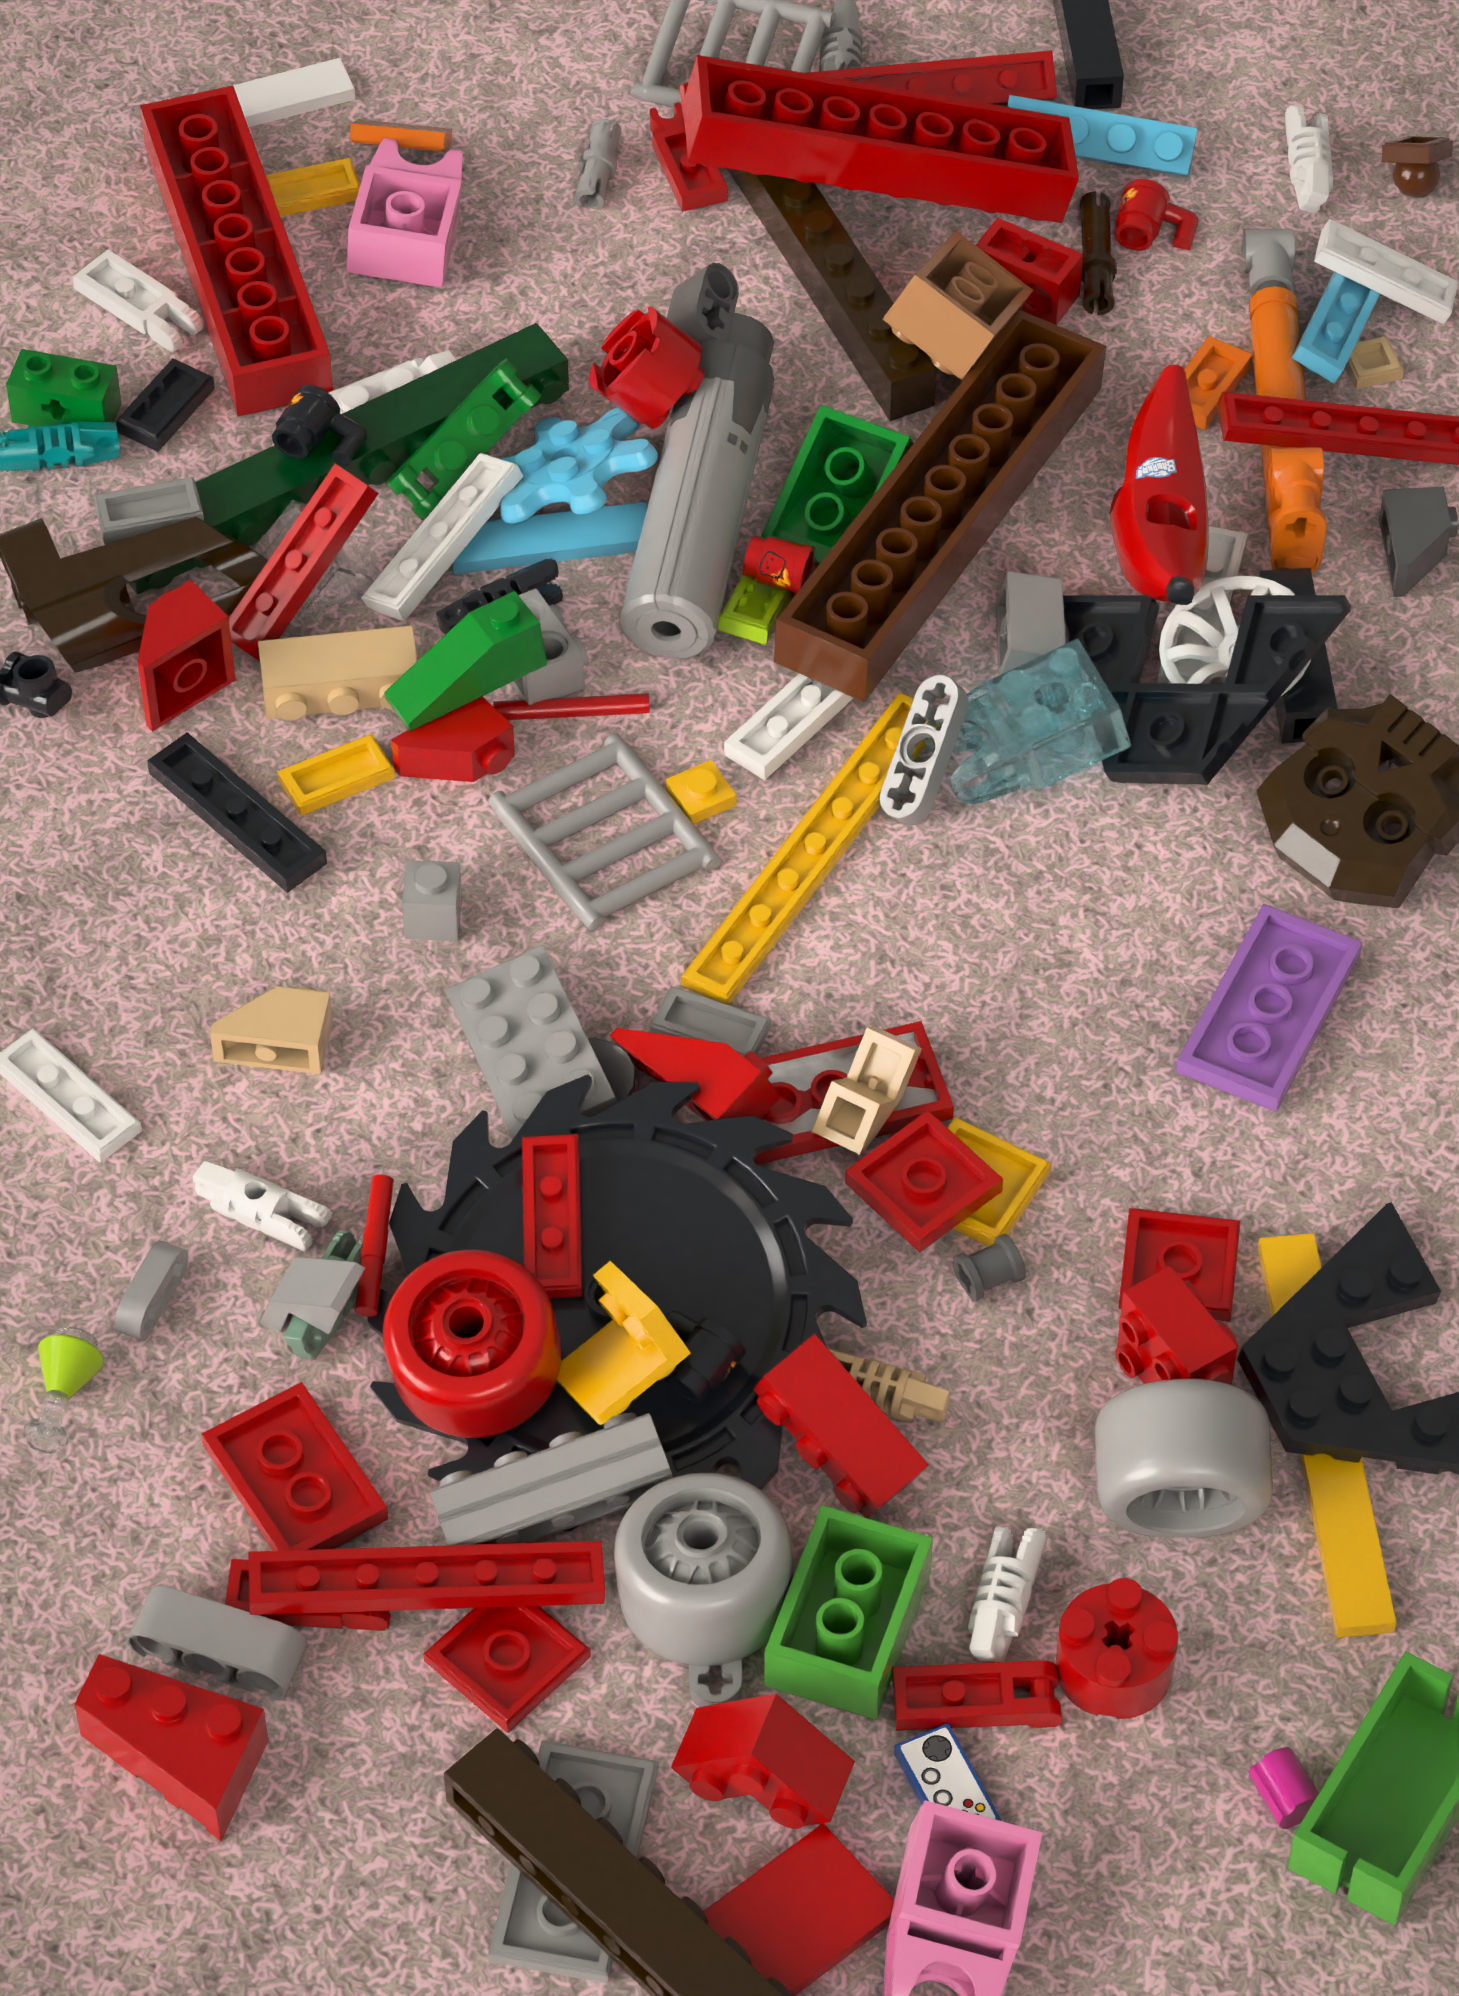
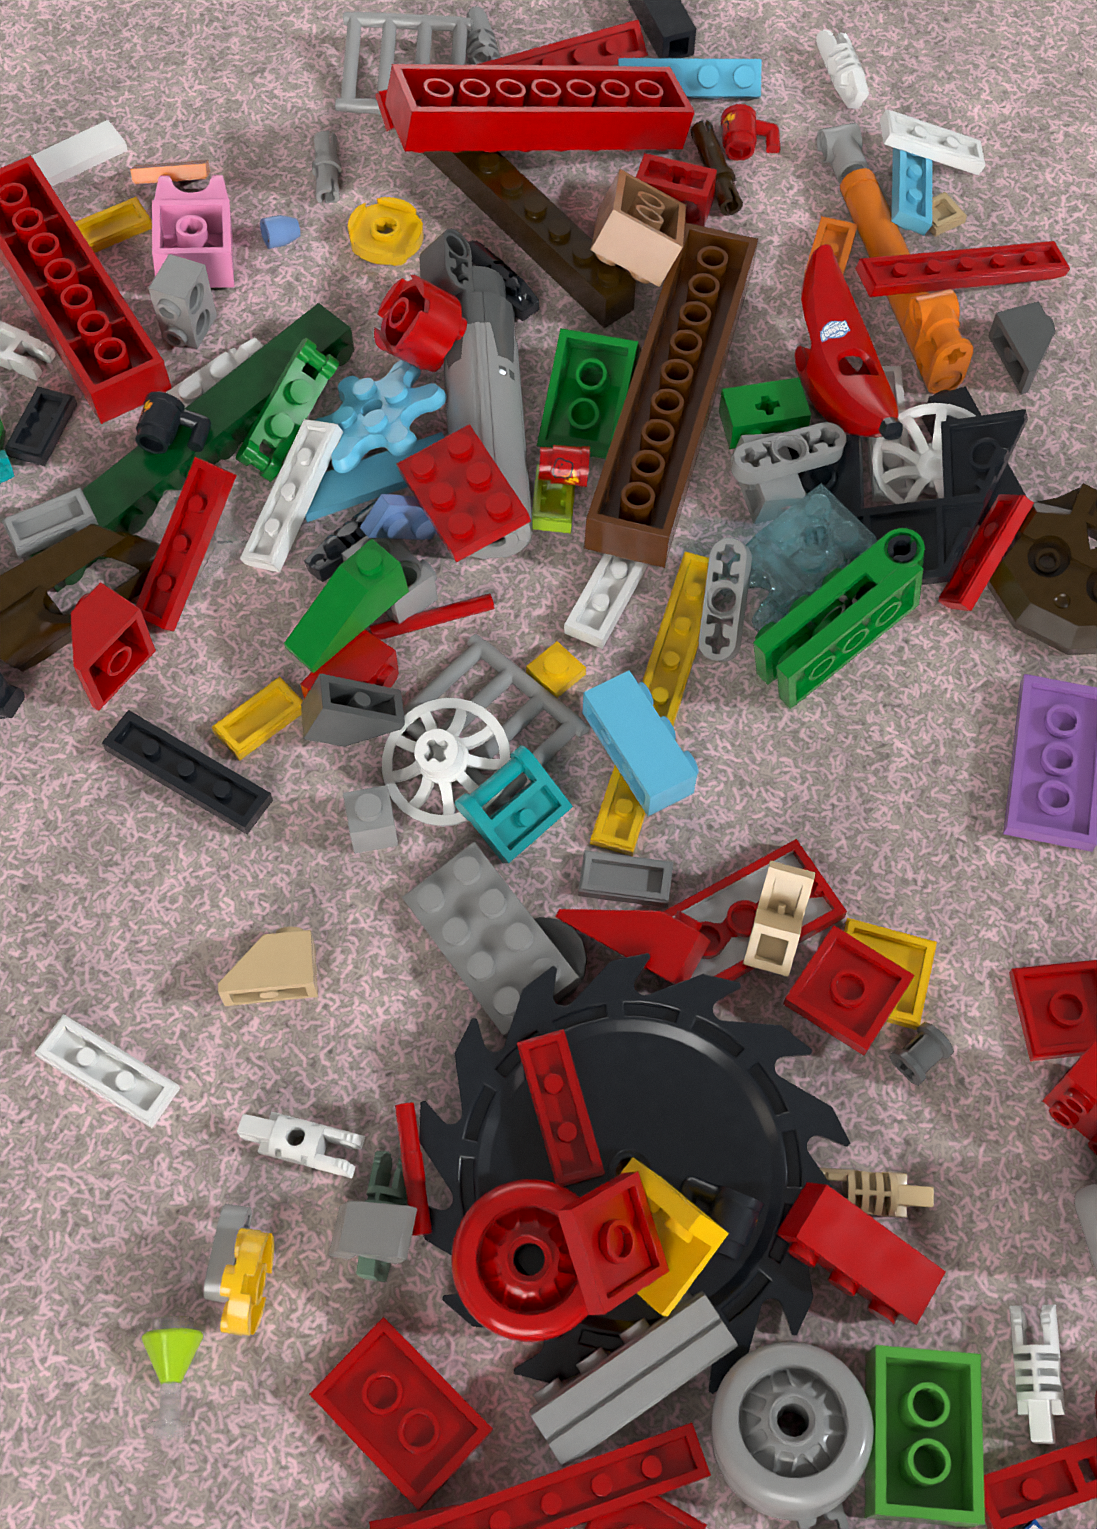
camera: 15 degrees left, 10 degrees up
(165, 1304) = (246, 1282): none -> yellow plate
(333, 671) = (236, 629): tan brick -> none
(372, 292) = (183, 301): none -> light grey brick
(441, 782) = (350, 711): none -> dark grey slope
(516, 230) = (279, 230): none -> medium blue hose
(534, 852) = (442, 758): none -> white wheel
(559, 1321) = (613, 1242): none -> red plate
(570, 585) = (398, 518): none -> medium blue hinge
(609, 934) = (524, 815): none -> teal plate
(639, 564) = (463, 493): none -> red plate
(643, 275) = (391, 247): none -> yellow plate
(690, 182) = (385, 148): red plate -> none
(769, 880) = (640, 742): none -> medium azure brick
(788, 357) = (517, 291): none -> black hinge
(1052, 790) = (841, 616): none -> green hinge
(1054, 548) = (763, 409): none -> green brick
(1092, 611) = (776, 466): none -> light grey beam
(1260, 757) = (985, 551): none -> red tile
(1416, 162) = (923, 58): reddish brown tile -> none

